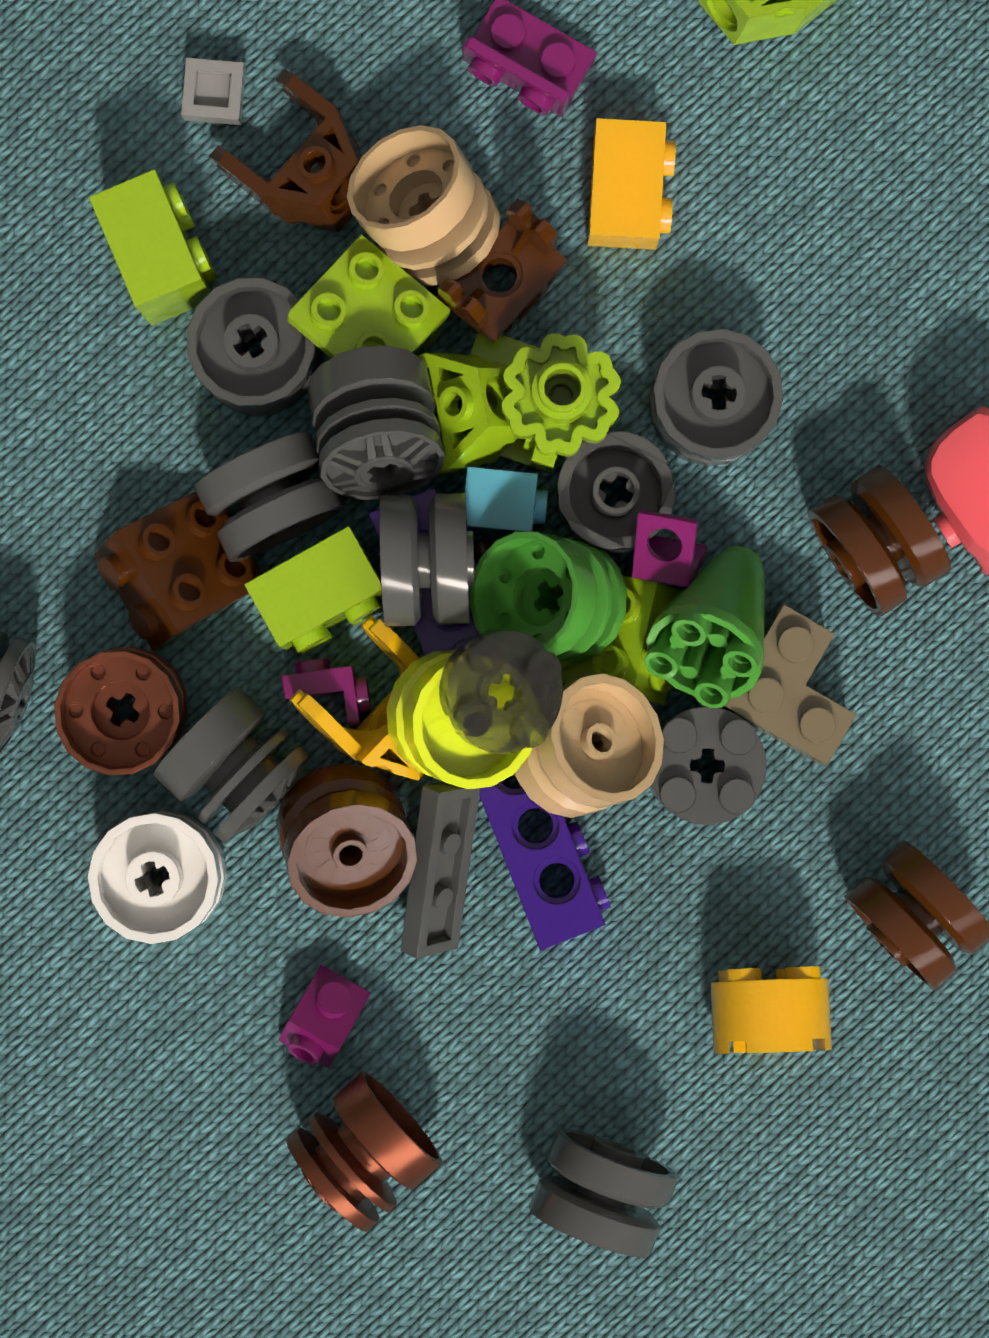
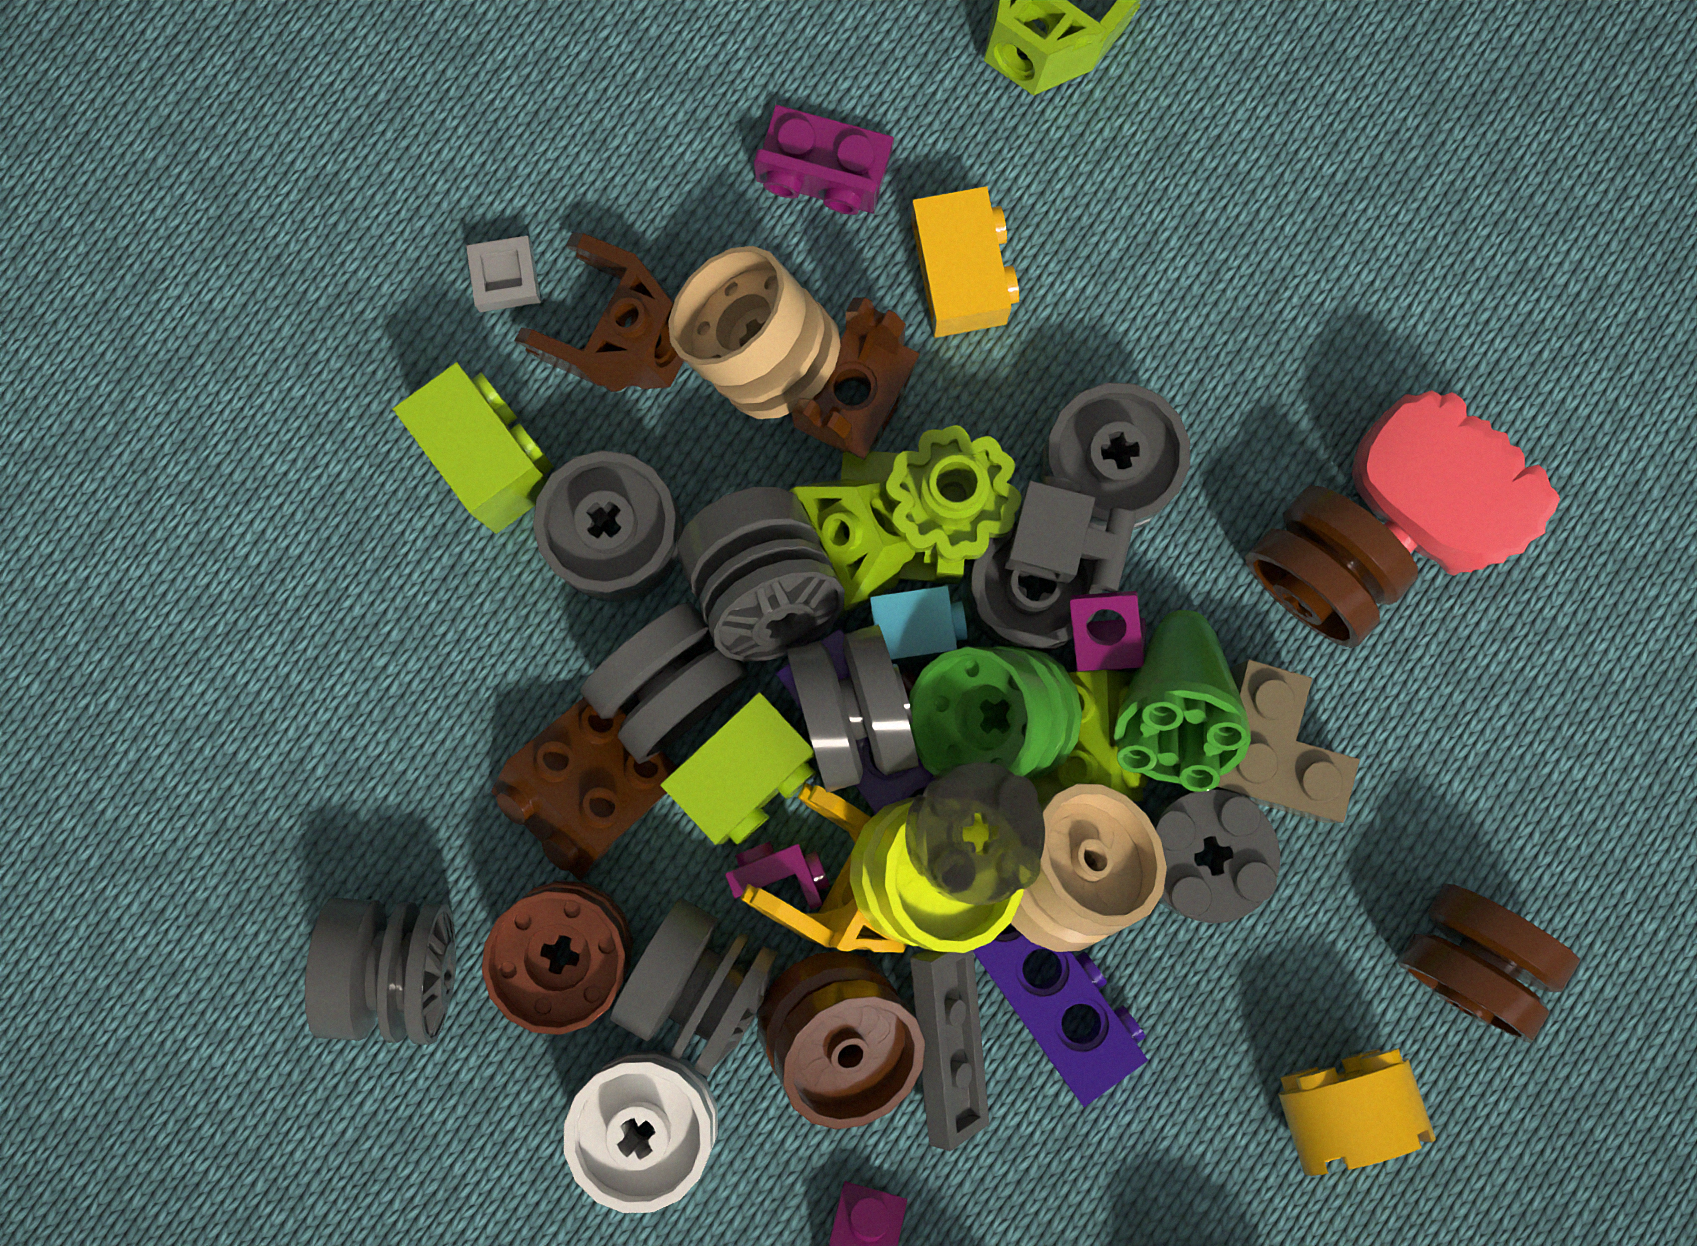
camera: 10 degrees left, 5 degrees down
(368, 304) = (720, 449): lime bracket -> none
(640, 452) = (1055, 534): none -> dark grey brick

